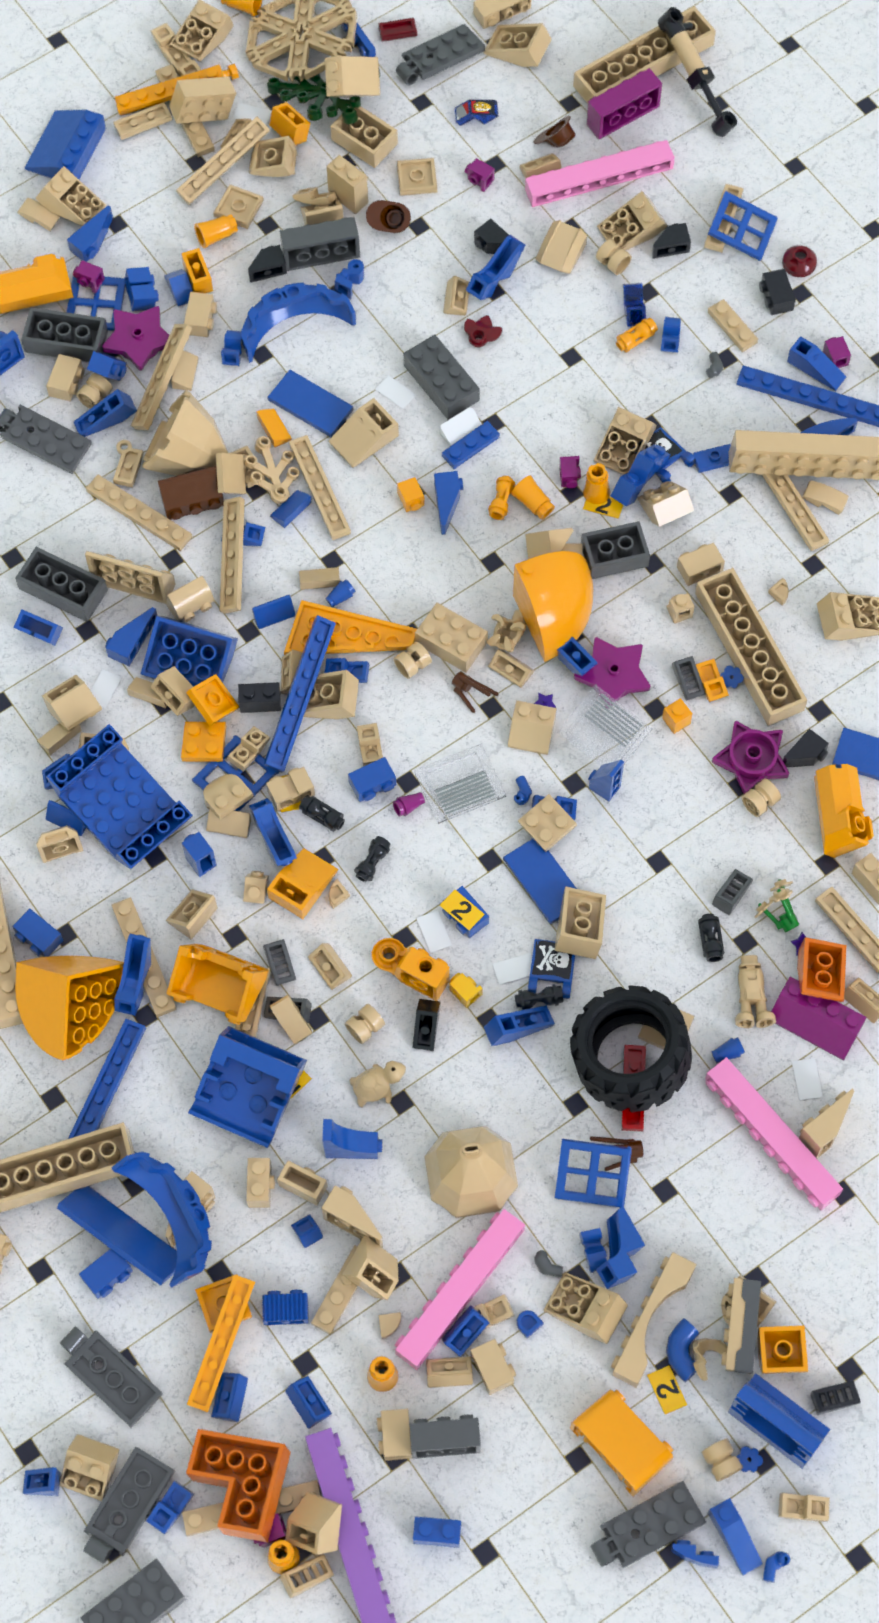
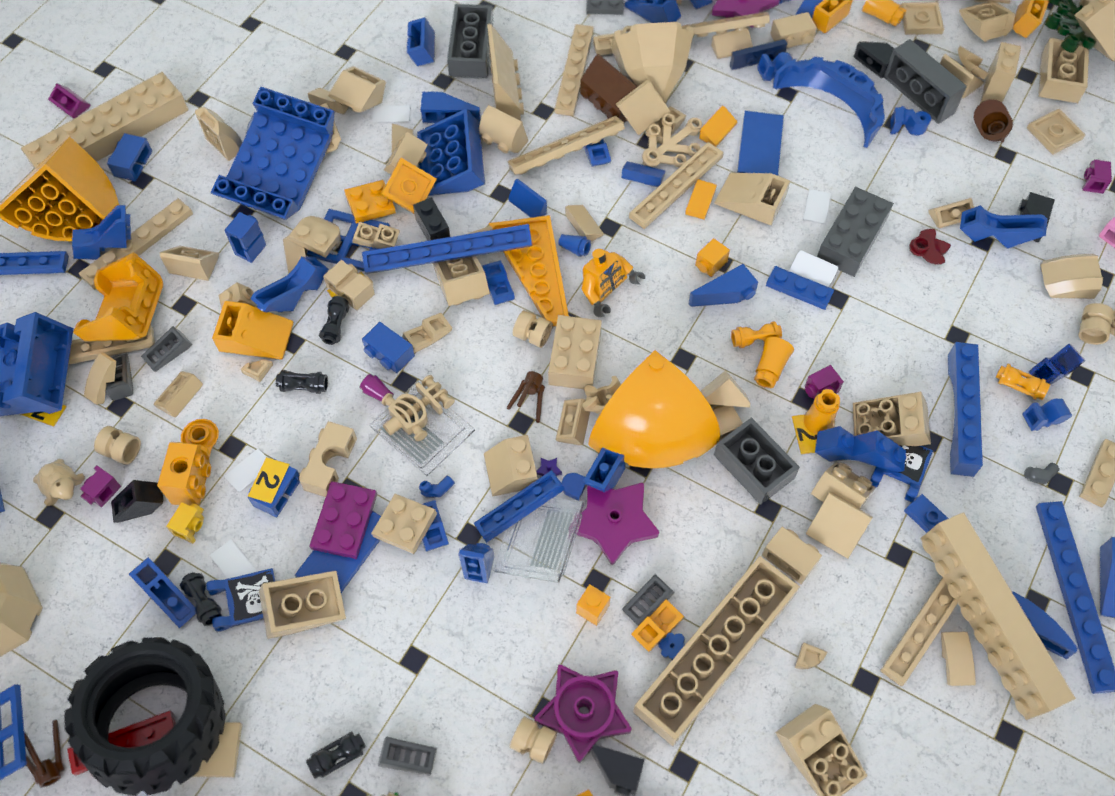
camera: 65 degrees right, 5 degrees down
(210, 360) = (752, 55): none -> dark blue plate
(343, 476) = (701, 199): none -> light orange tile
(390, 584) = (603, 276): none -> light orange torso
(397, 1049) = (99, 487): none -> magenta brick
(452, 780) = (402, 411): none -> tan piece
(470, 875) = (333, 441): none -> tan arch
(521, 868) = (343, 520): none -> magenta plate
(569, 690) = (573, 485): none -> blue tile
(571, 734) = (519, 506): none -> blue tile
(669, 400) = (967, 434): none -> blue arch
(679, 604) = (729, 553): tan brick -> none
(693, 520) = (839, 525): none -> tan tile

